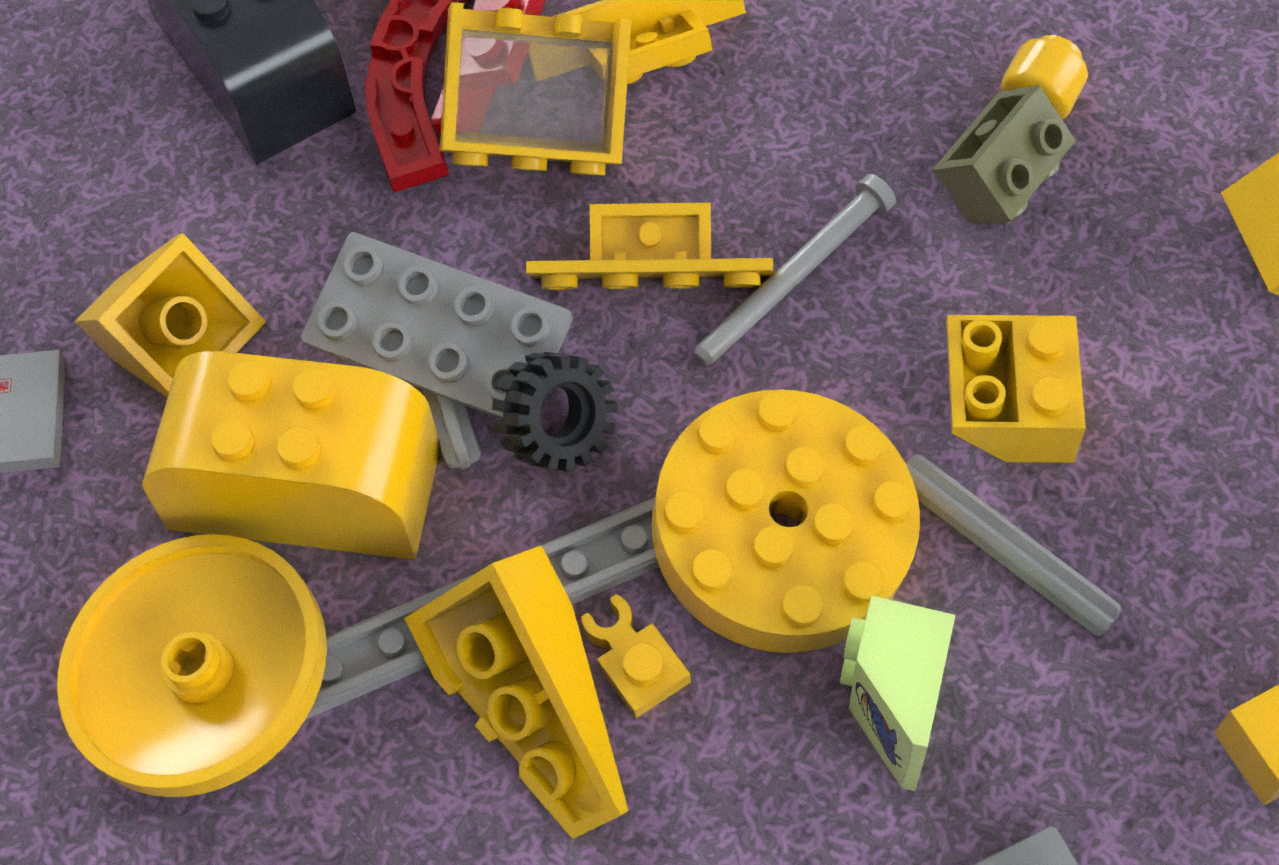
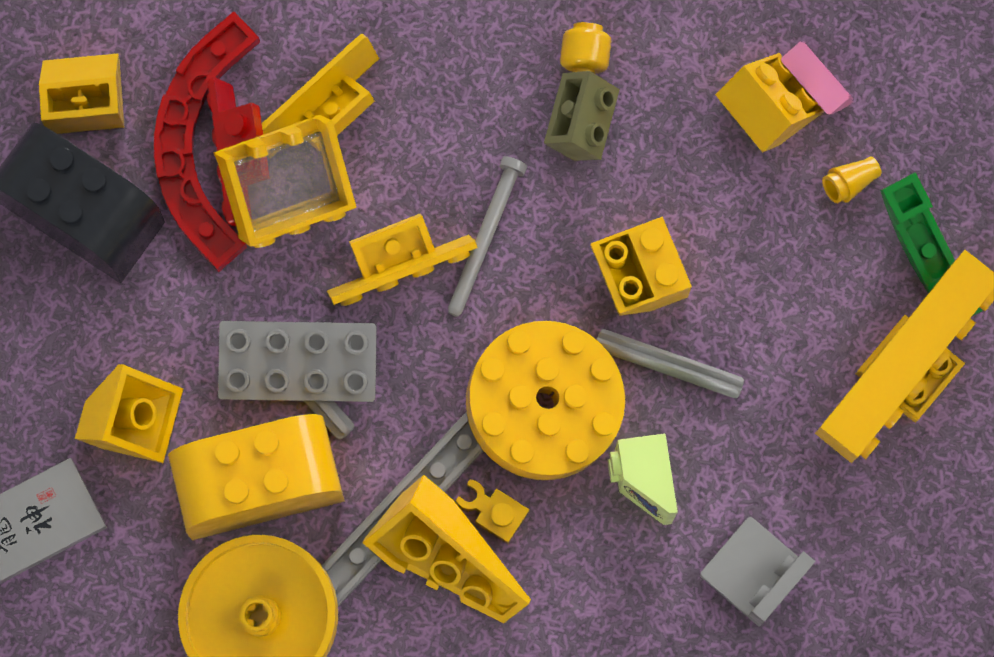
camera: 30 degrees left, 15 degrees up
(584, 419) = (406, 387): black tyre -> none

